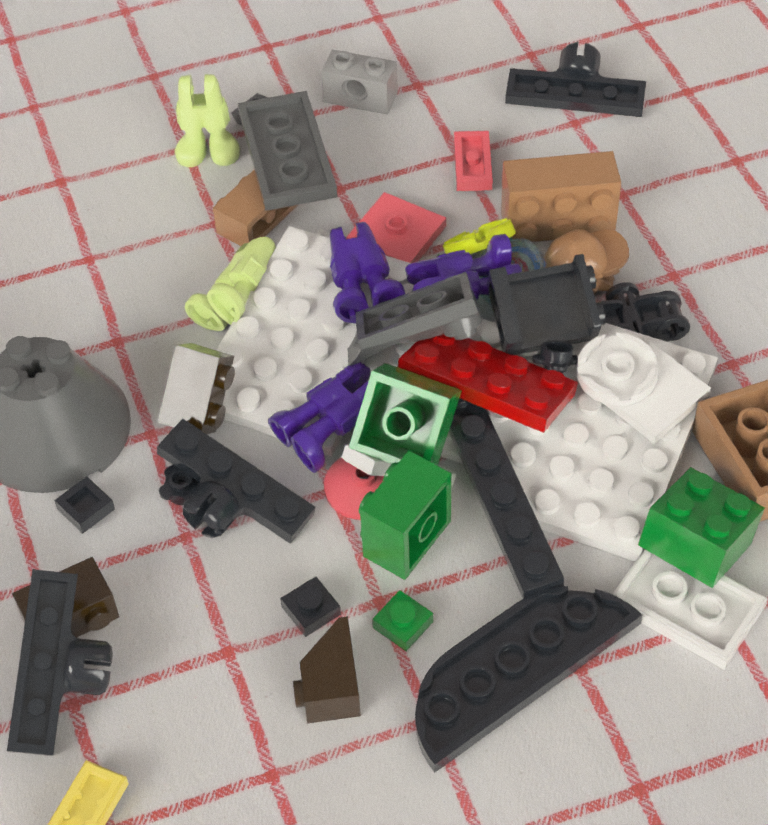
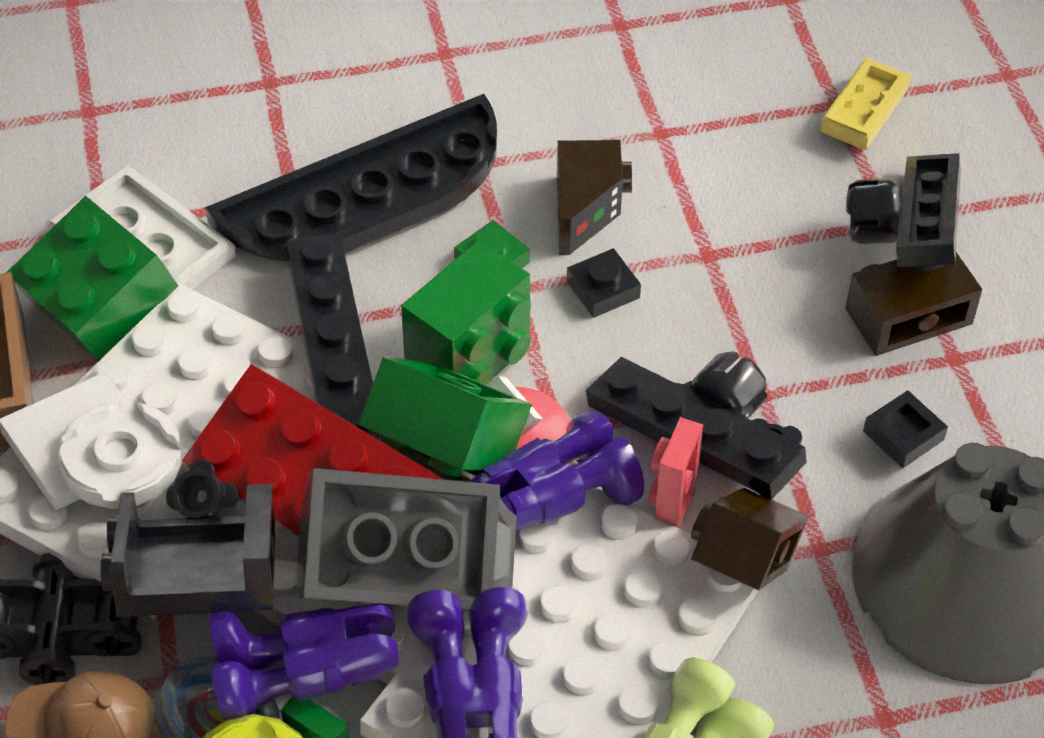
camera: 175 degrees left, 0 degrees up
(245, 421) = (676, 469): none -> coral plate

